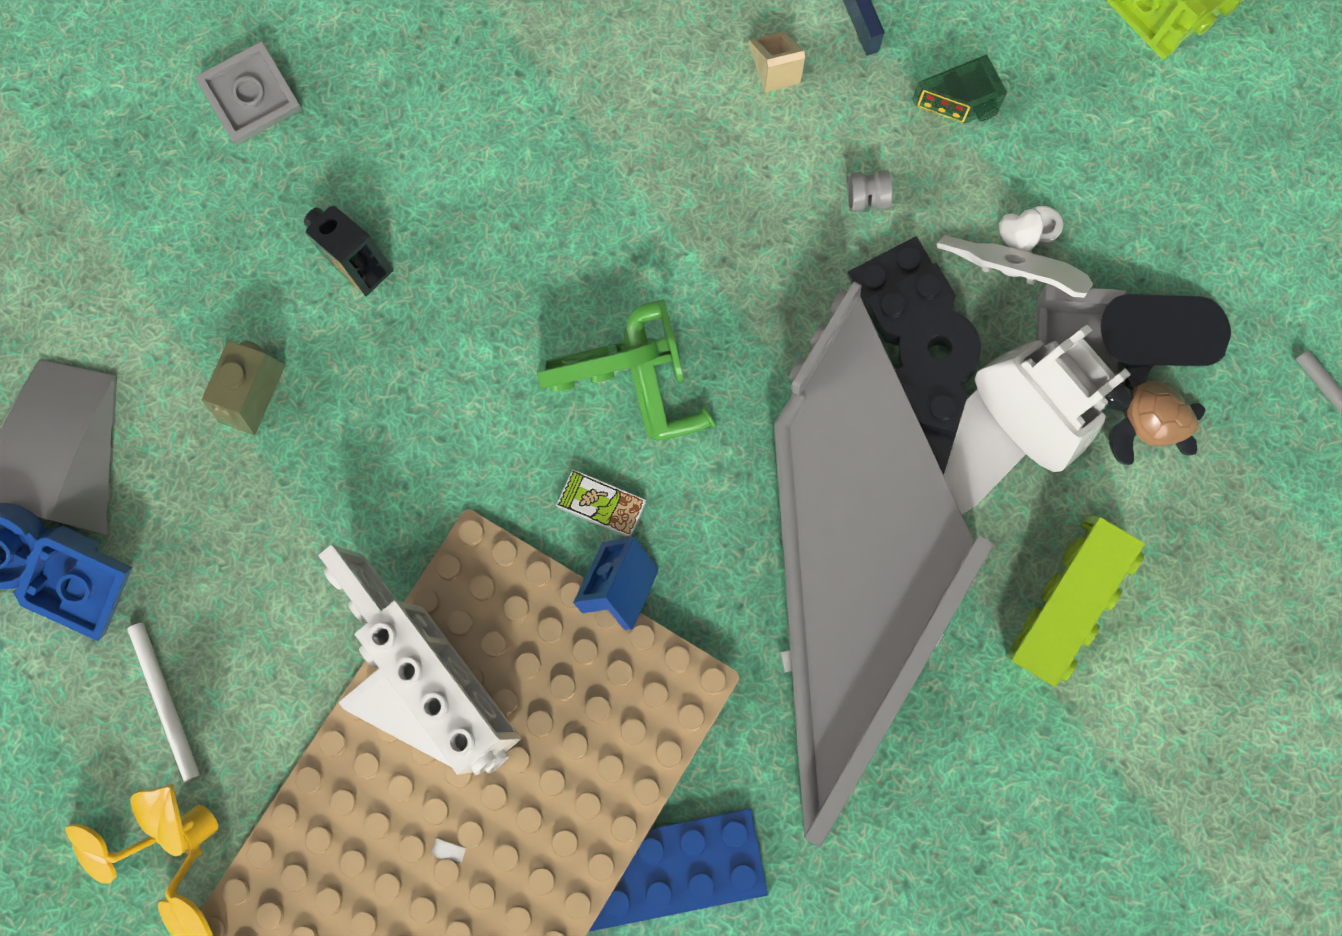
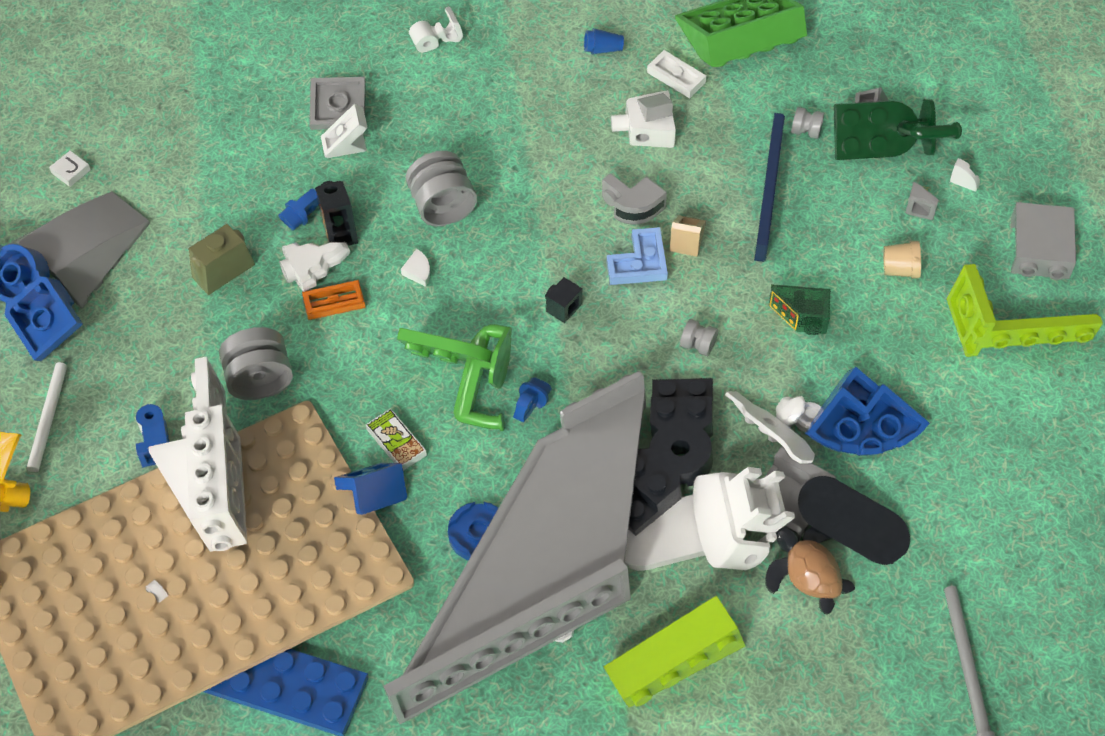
camera: 30 degrees right, 20 degrees down
(288, 132) = (346, 134): none -> white slope
(295, 272) = (297, 211): none -> blue piece
(315, 657) = (154, 432): none -> blue leg
(355, 328) = (311, 262): none -> white rock
(381, 504) = (255, 363): none -> light grey wheel
(422, 373) = (334, 303): none -> orange tile
(457, 151) = (441, 188): none -> light grey wheel
(488, 268) = (417, 268): none -> white tile
(686, 222) = (563, 299): none -> black plate
(691, 55) = (635, 204): none -> light grey brick
(725, 361) = (532, 395): none -> blue piece
(751, 122) = (643, 265): none -> light blue plate
(758, 579) = (468, 527): none -> blue tile
(1104, 196) = (864, 418): none -> blue brick

